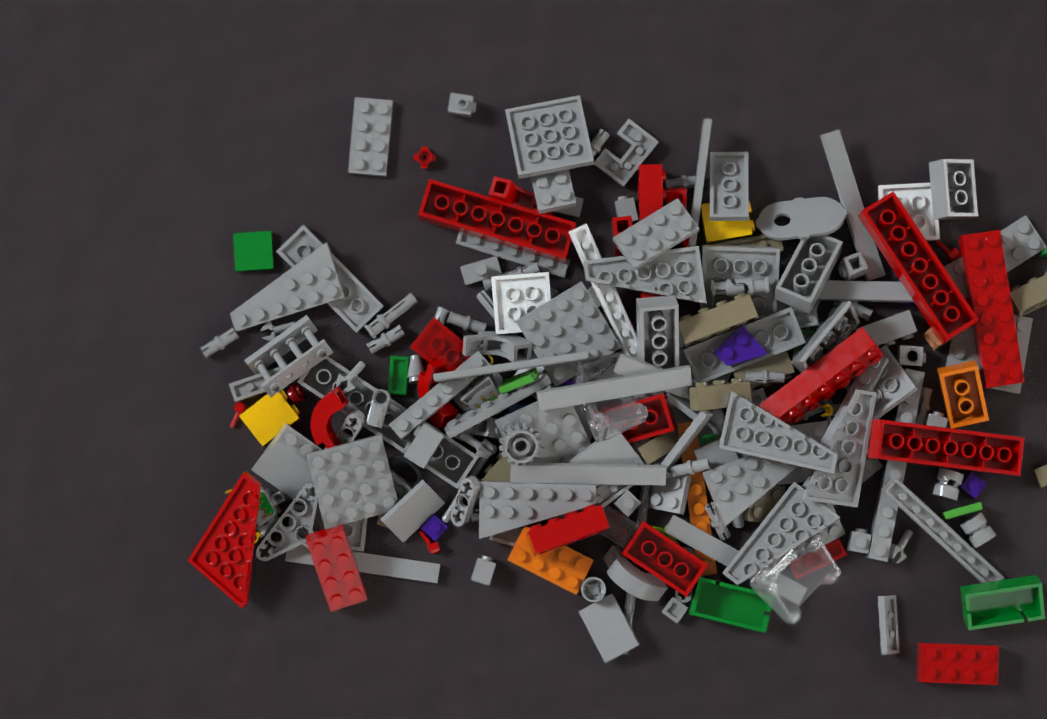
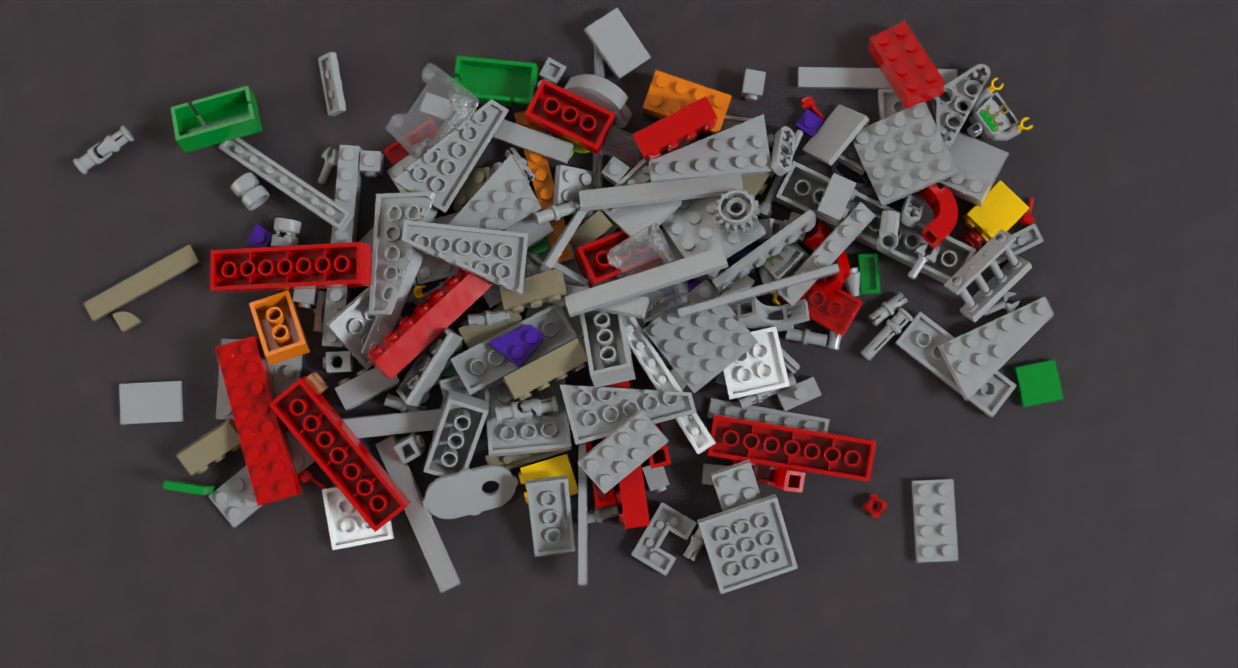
camera: 170 degrees right, 0 degrees up
(219, 342) = (1059, 282): light grey pin -> none
(228, 543) = (1020, 77): red wing -> none
(461, 105) = (844, 566): light grey brick -> none
(483, 448) = (777, 209): light grey bar -> none
(518, 380) = (746, 279): bright green tile -> none
(593, 589) = (638, 79): light grey wheel -> none
(953, 189) = (312, 544): light grey brick -> none
(957, 663) = (256, 53): red brick -> none
(961, 510) = (269, 209): bright green tile -> none

